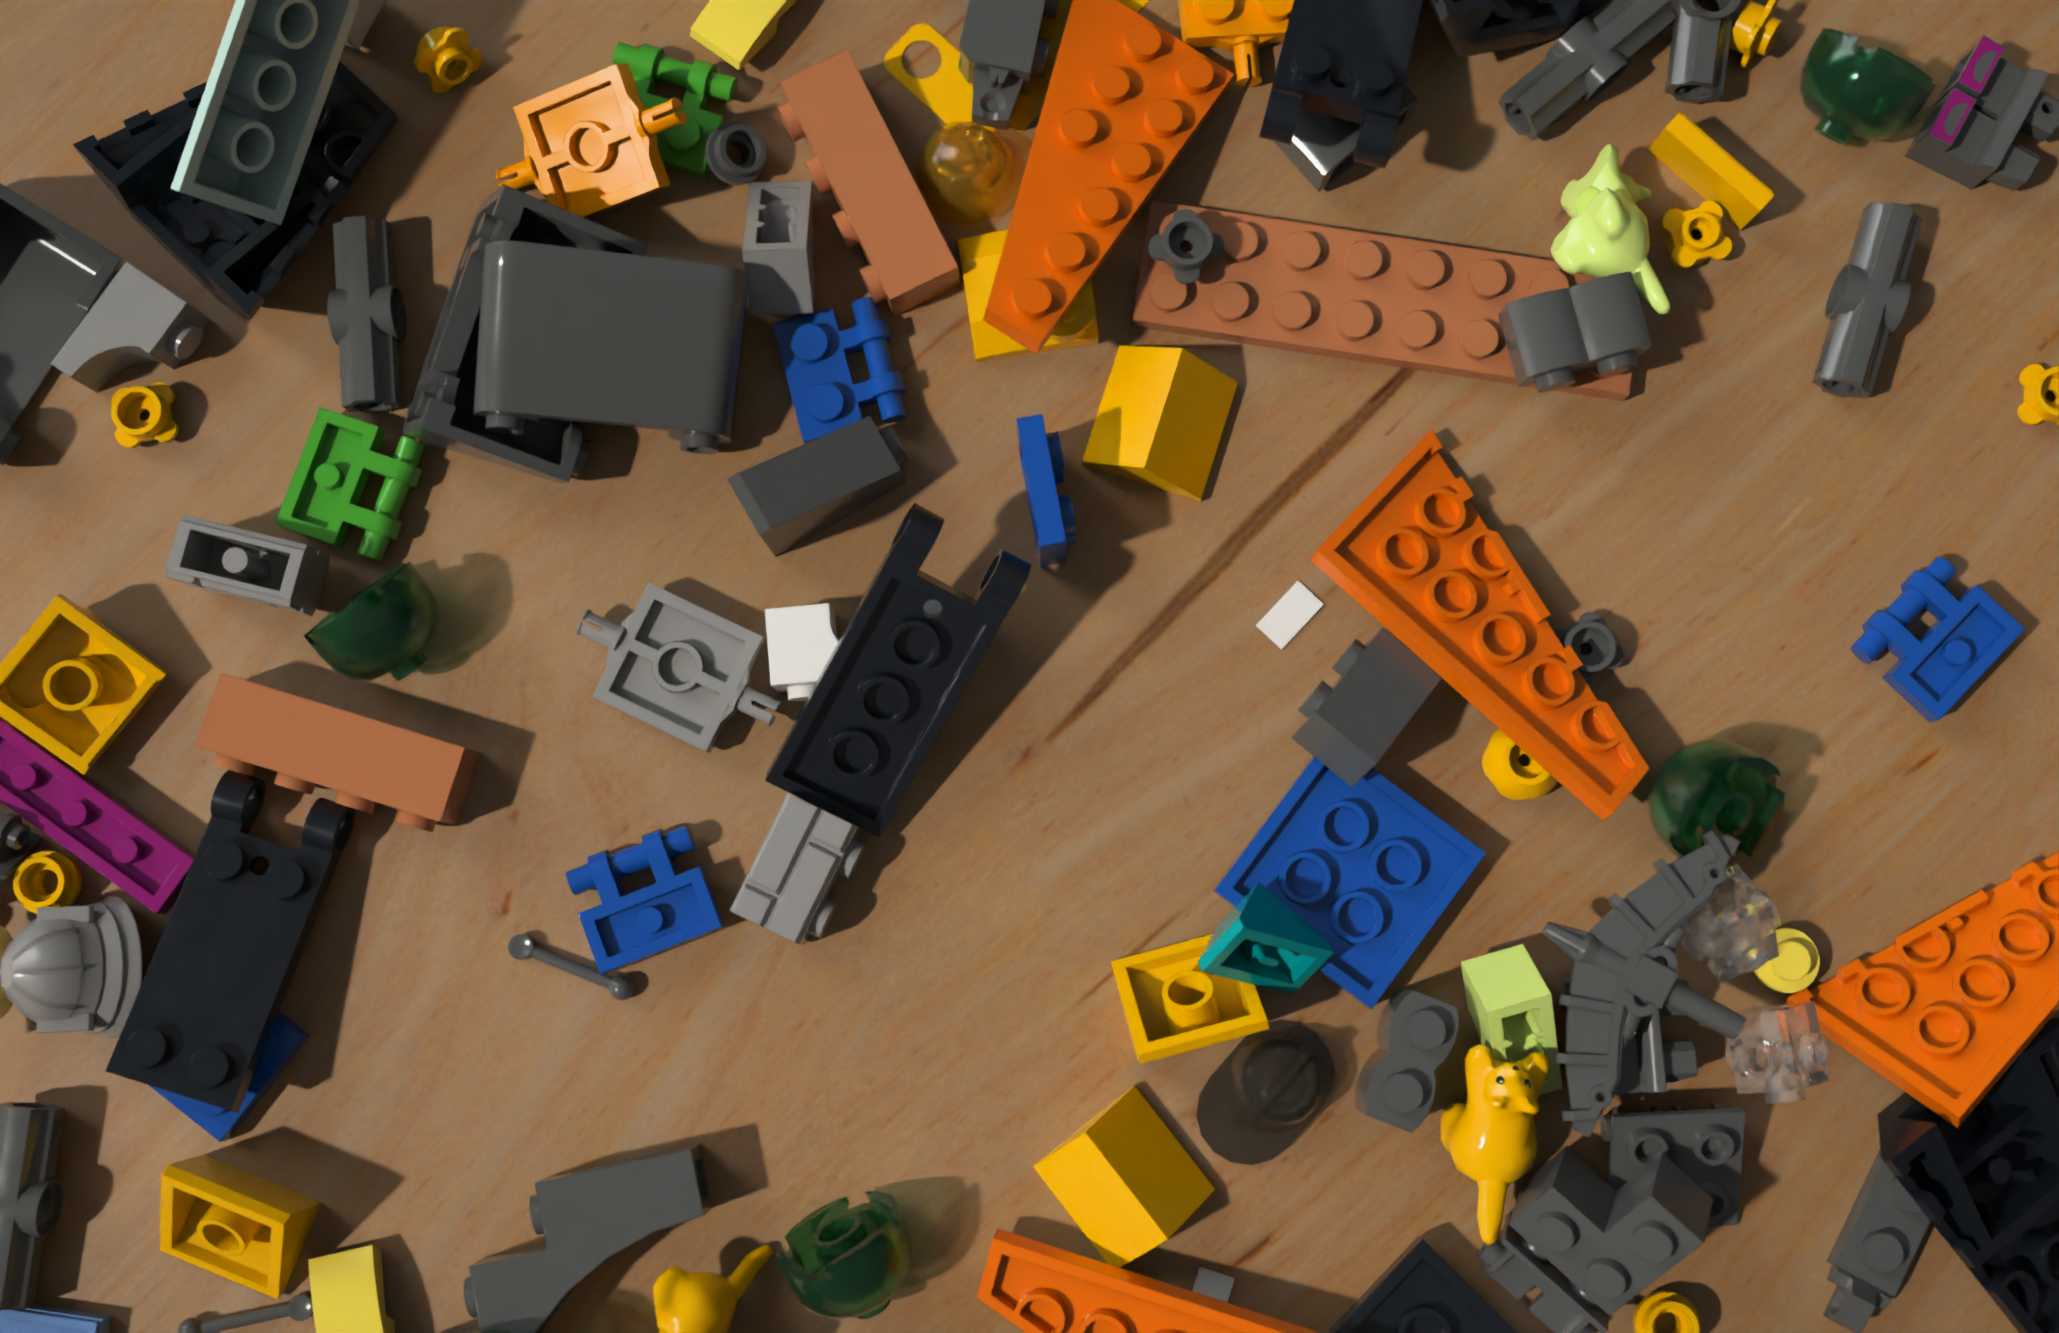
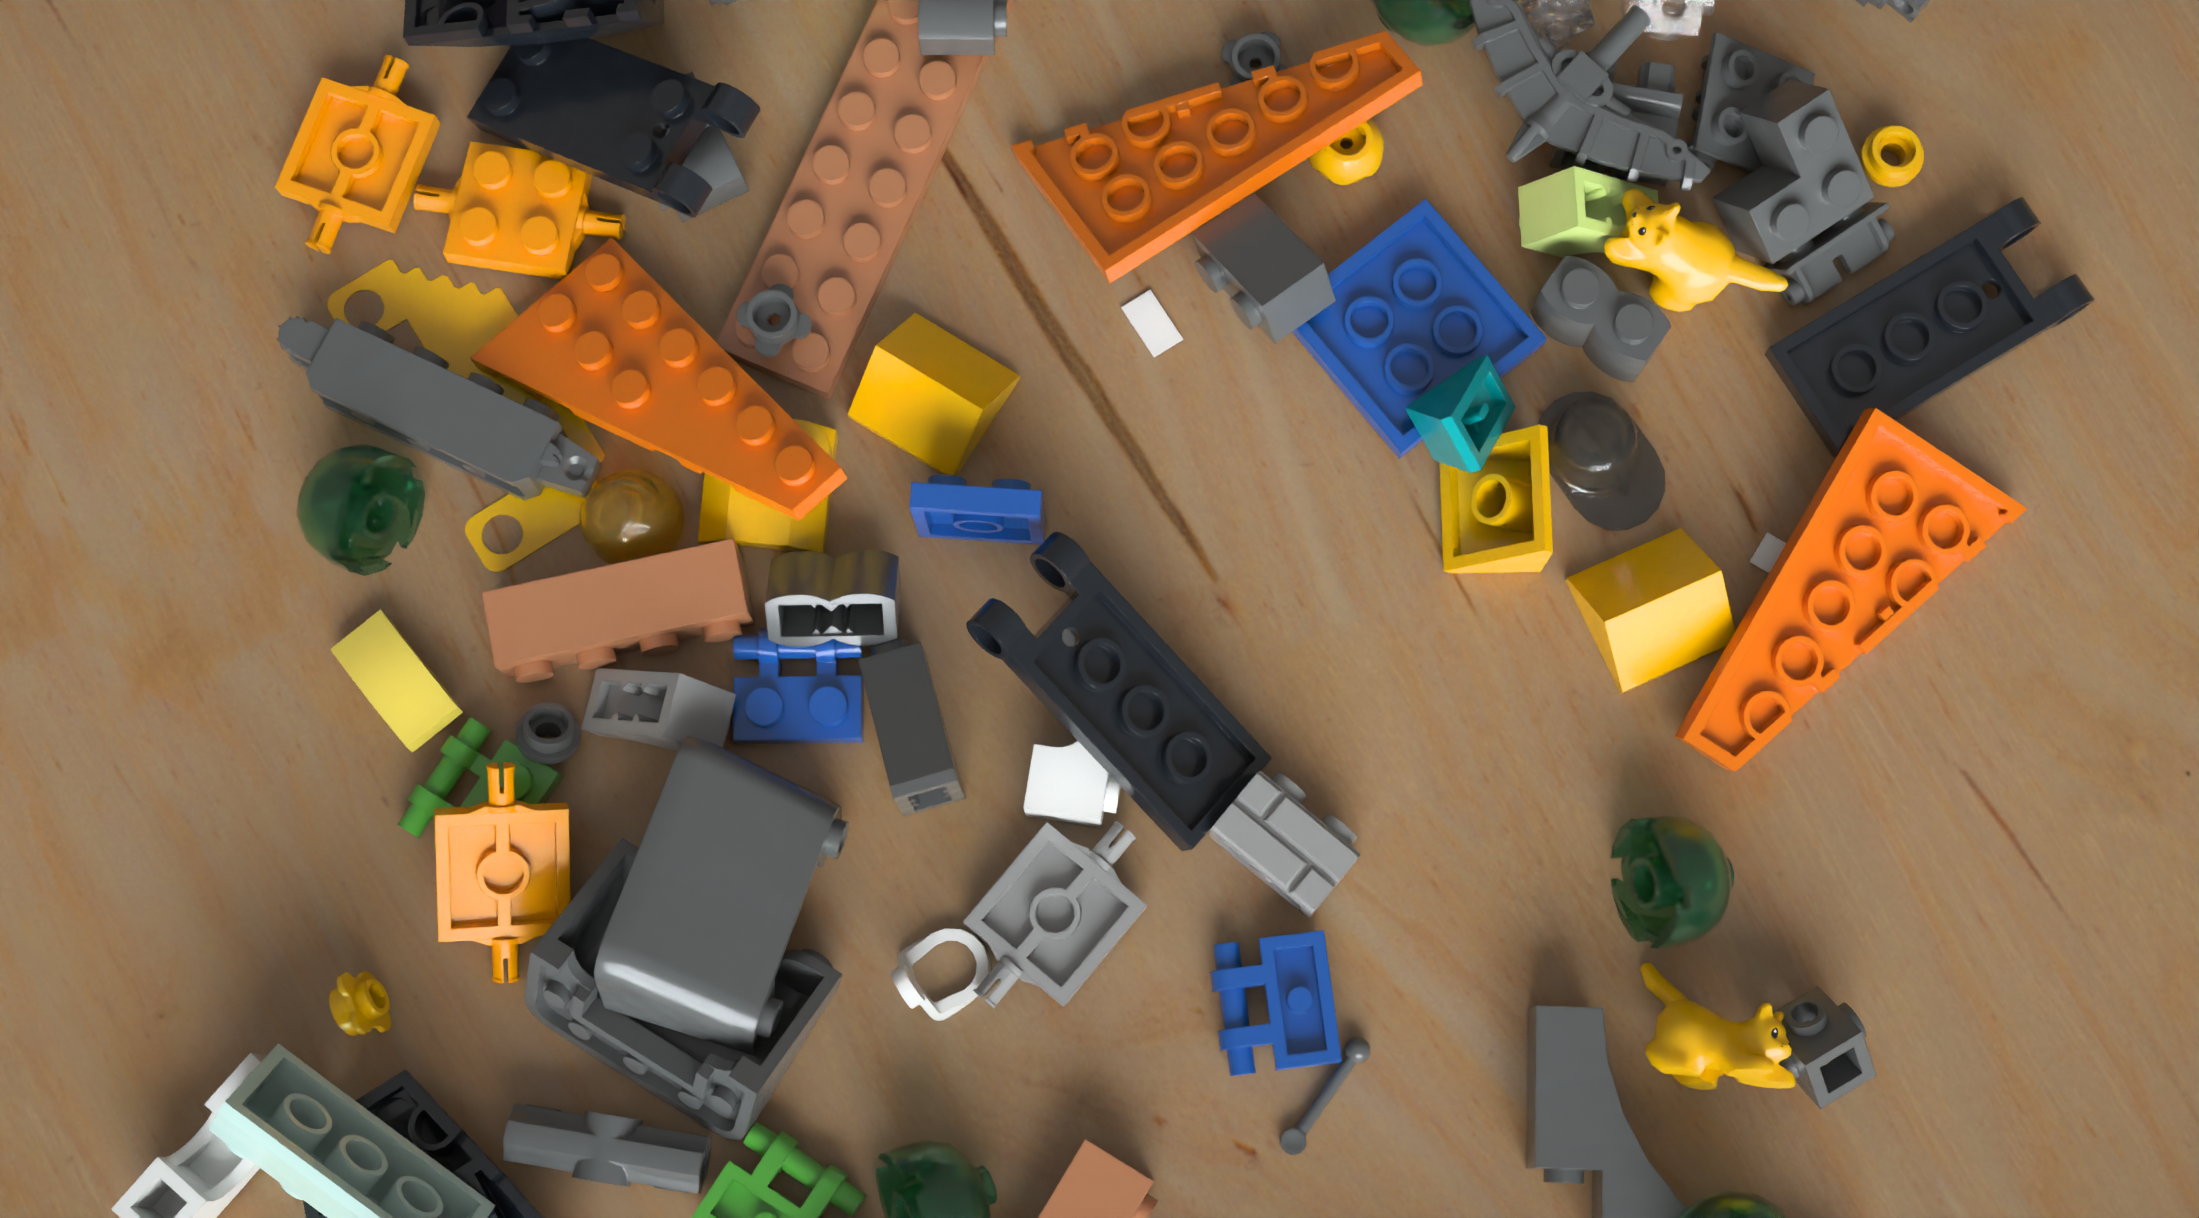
camera: 75 degrees left, 5 degrees down
(576, 541) = (911, 991): none -> white piece
(927, 377) = (833, 598): none -> dark grey brick

